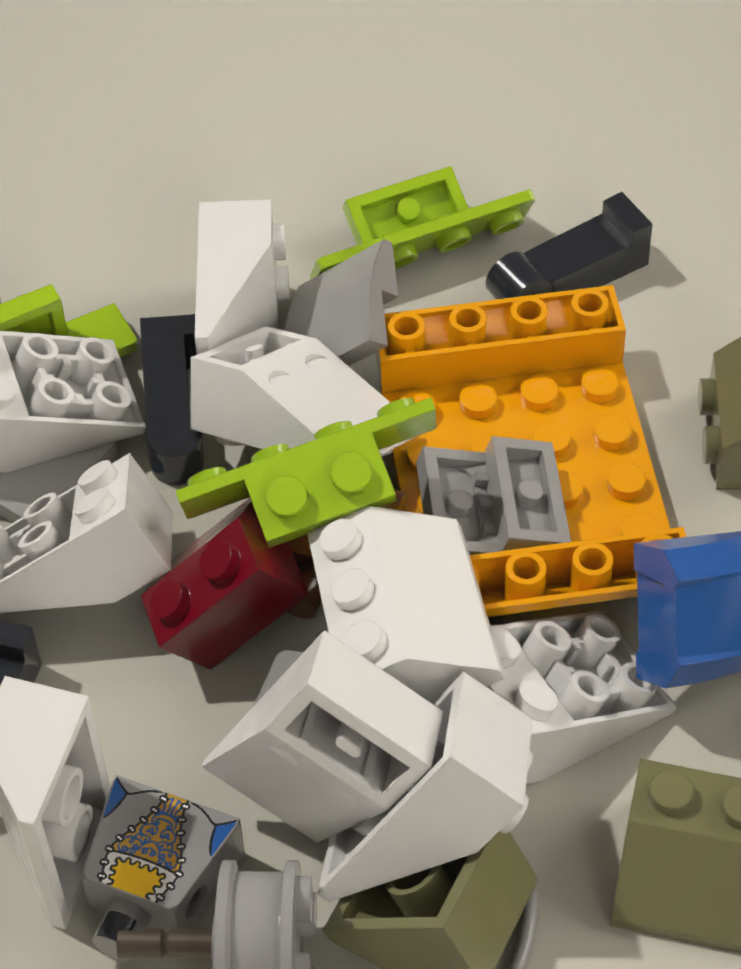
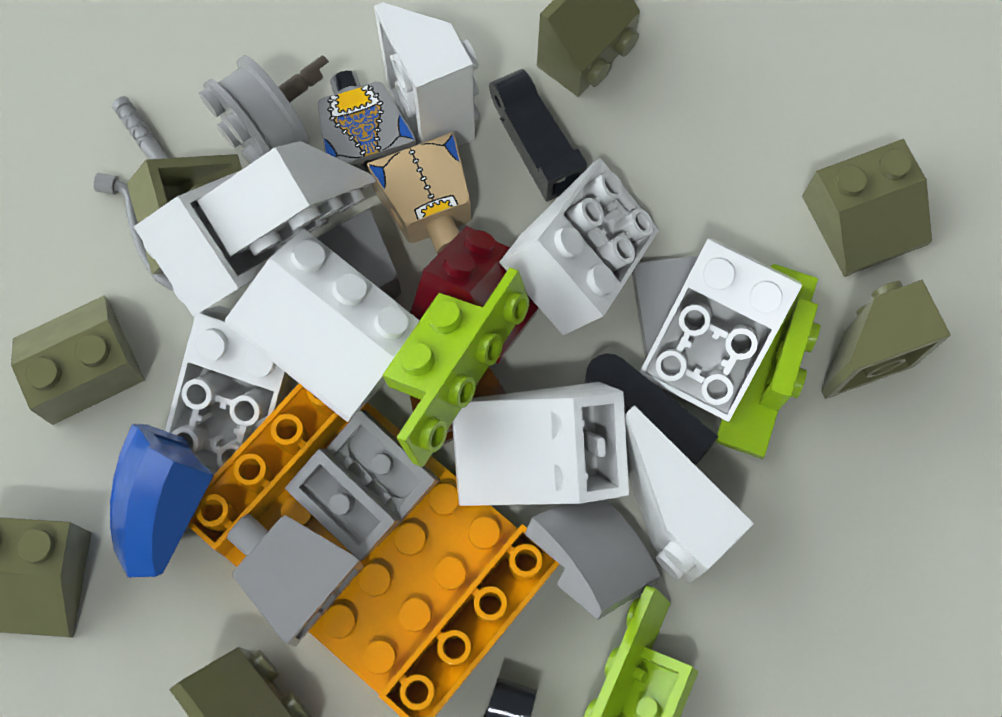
camera: 135 degrees right, 20 degrees up
(163, 728) = (424, 190): none -> tan torso
(622, 461) = (290, 573): none -> light grey torso

